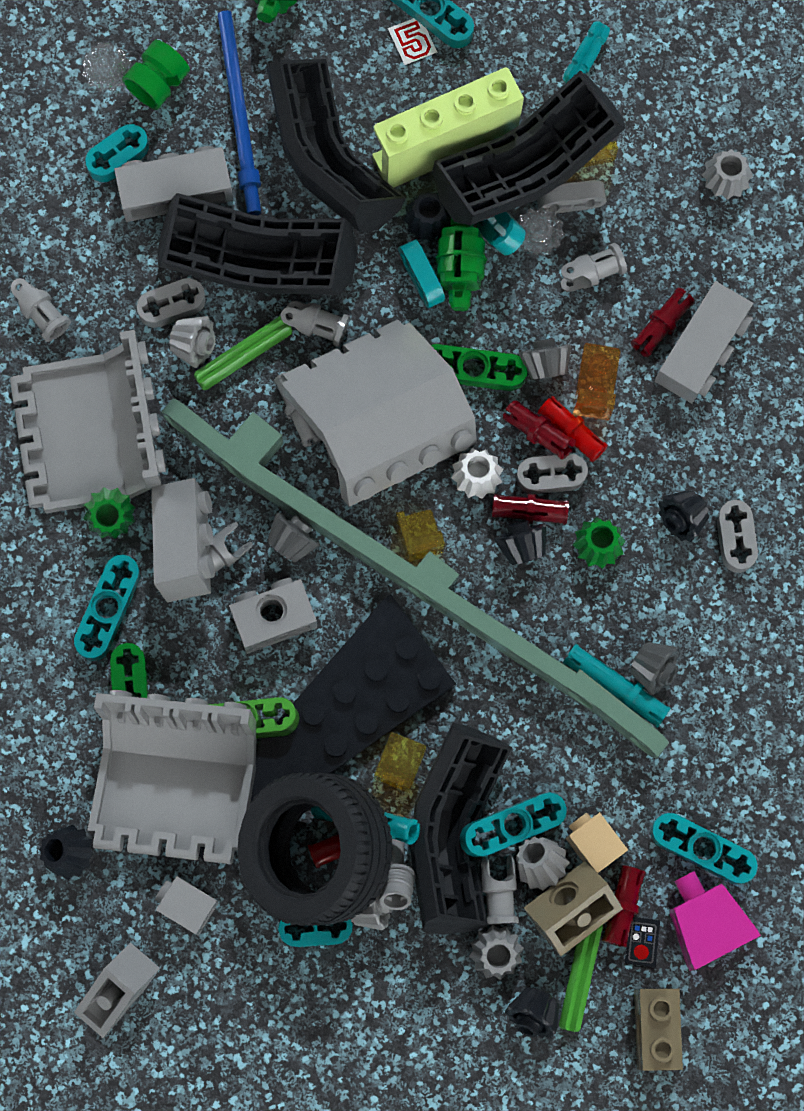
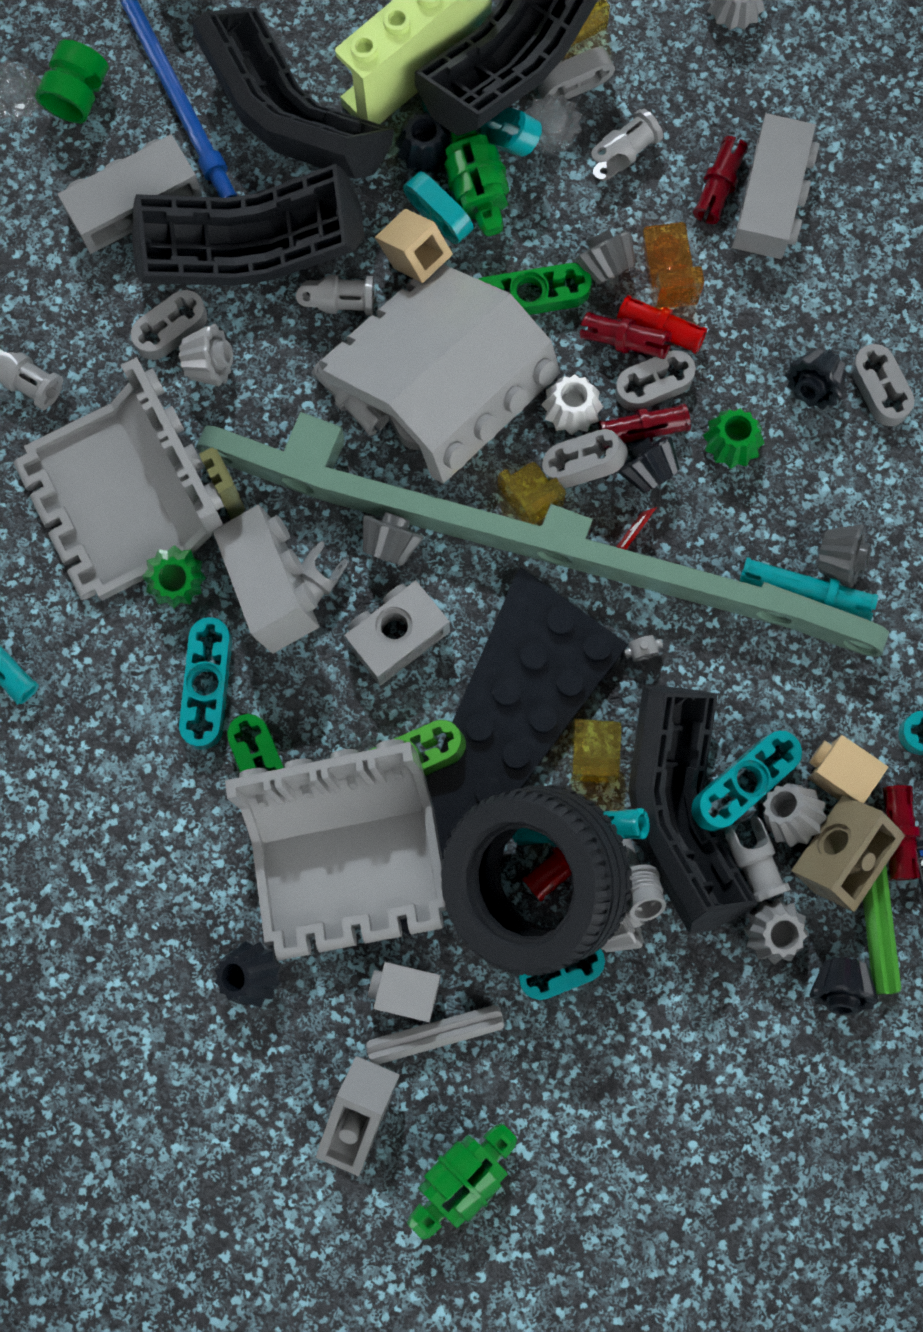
camera: 10 degrees left, 0 degrees up
(111, 149) = (52, 179): teal beam -> none
(172, 451) = (222, 482): none -> olive tile
(182, 1067) = (462, 1181): none -> green piece
(198, 946) = (435, 1034): none -> light grey axle
(242, 353) = (267, 355): bright green axle -> none
(390, 301) = (414, 245): none -> tan brick
(467, 691) = (643, 648): none -> light grey piece
(470, 525) = (585, 458): none -> light grey beam
(492, 592) = (635, 528): none -> red sticker

